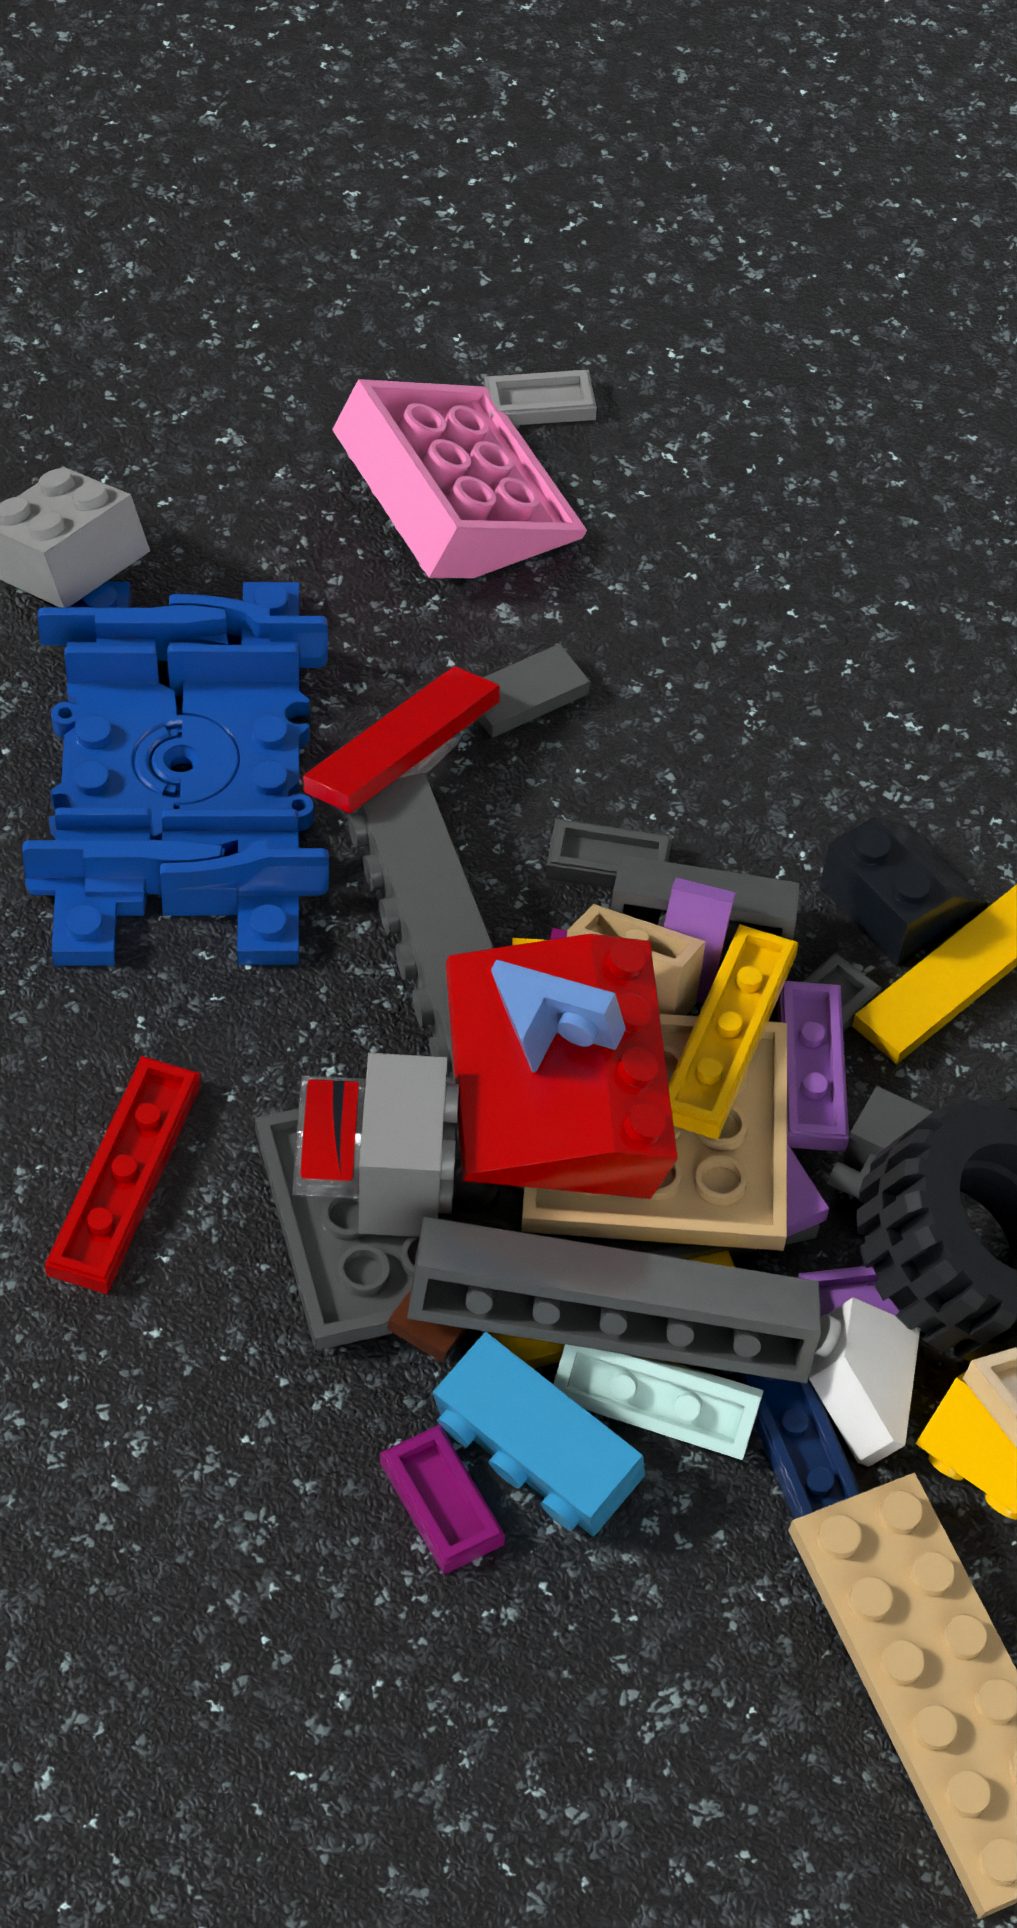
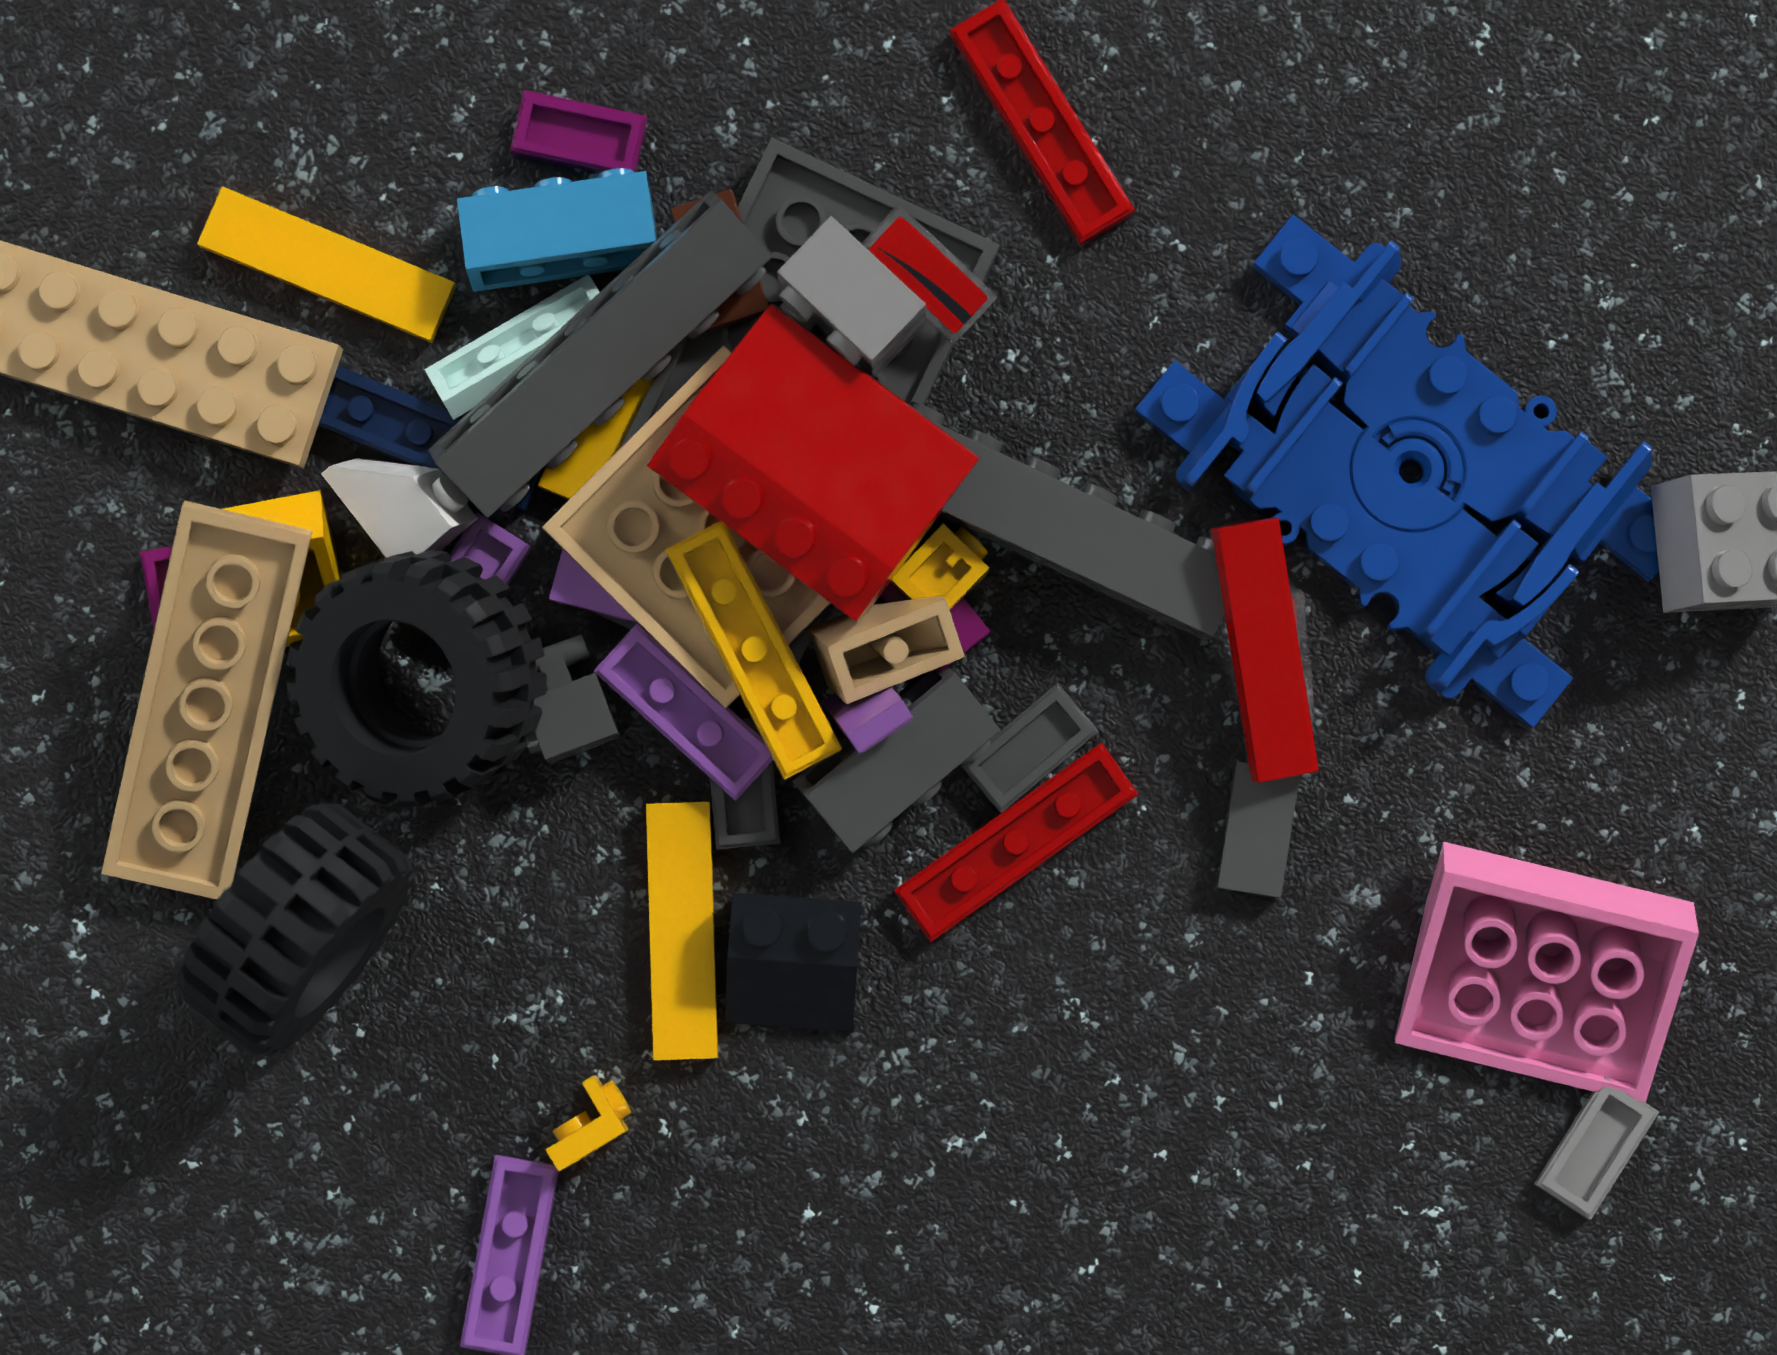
camera: 135 degrees right, 30 degrees up
(549, 1005) = (848, 452): medium blue slope -> none
(693, 820) = (1016, 842): none -> red tile
(733, 1611) = (327, 264): none -> yellow tile

